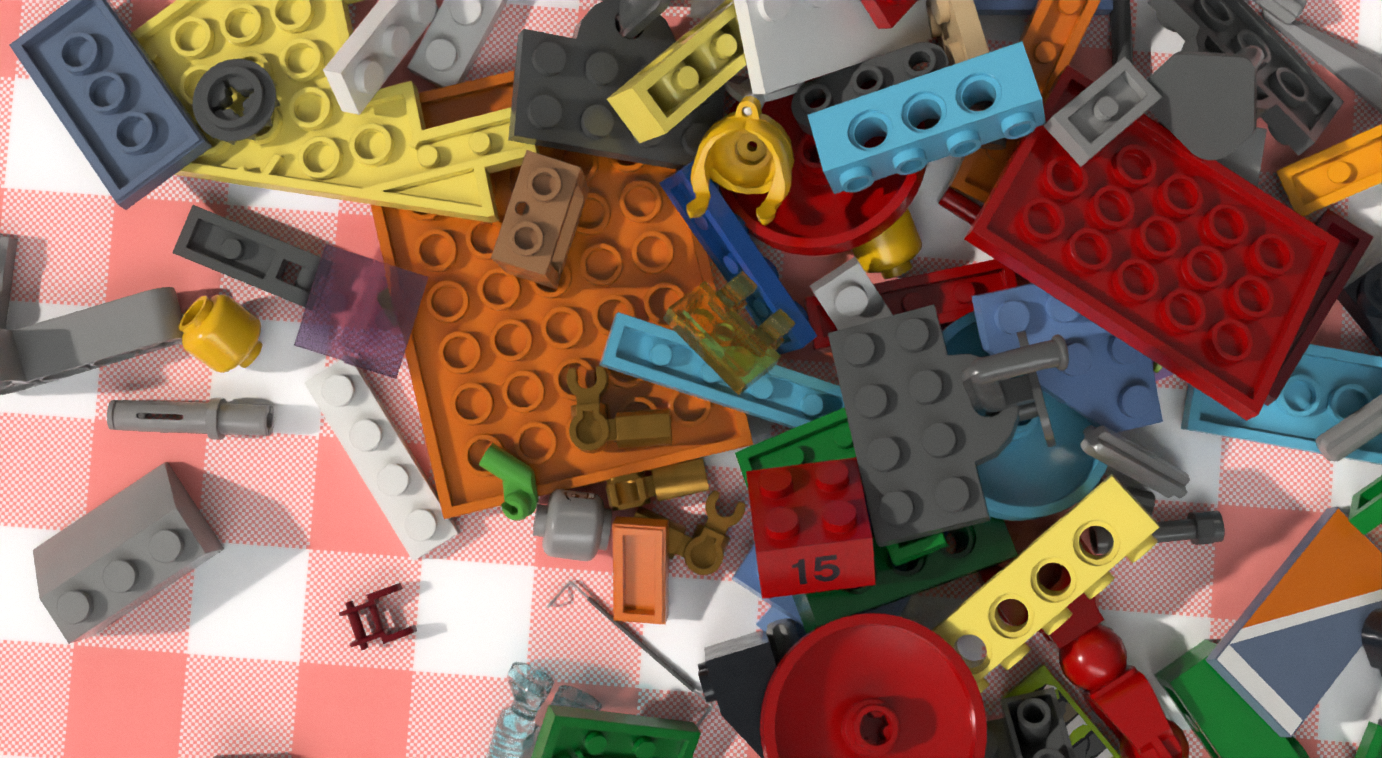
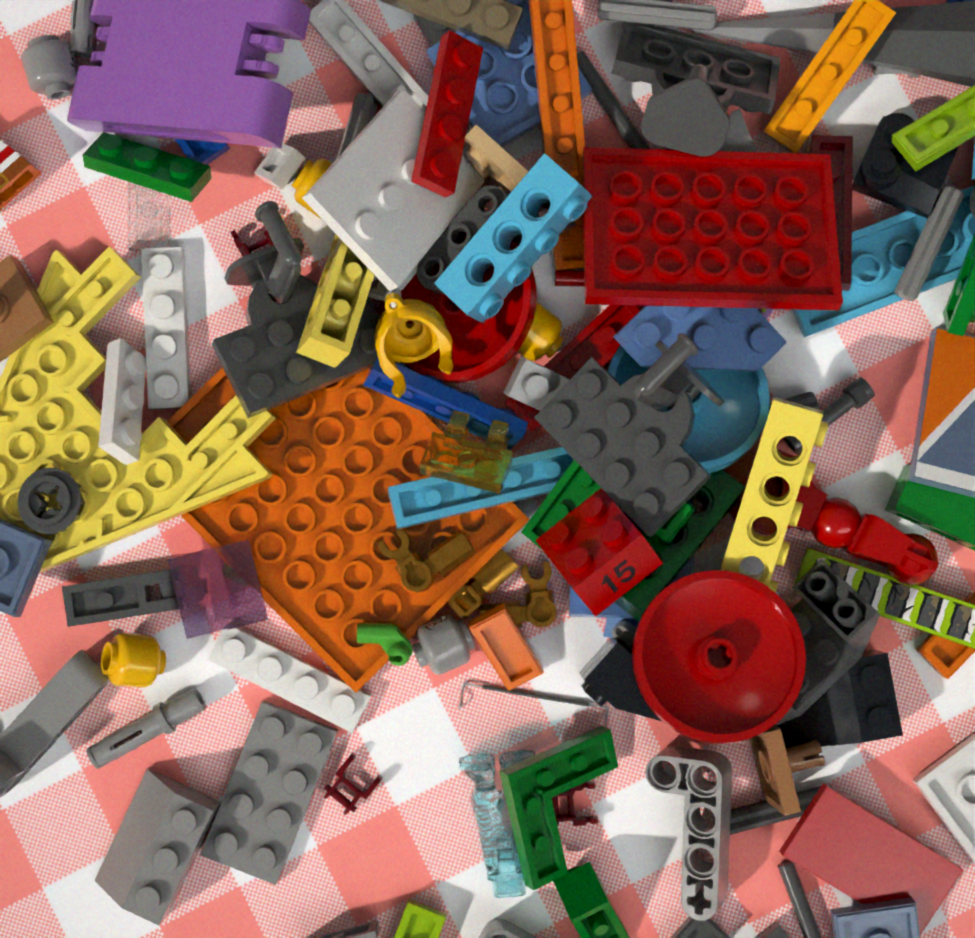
camera: 30 degrees left, 0 degrees up
(282, 570) = (269, 792): none -> light grey plate
(541, 238) = (308, 468): medium nougat window -> none
(1102, 111) = (624, 165): light grey plate -> none
(1134, 461) = (785, 379): light grey axle -> none

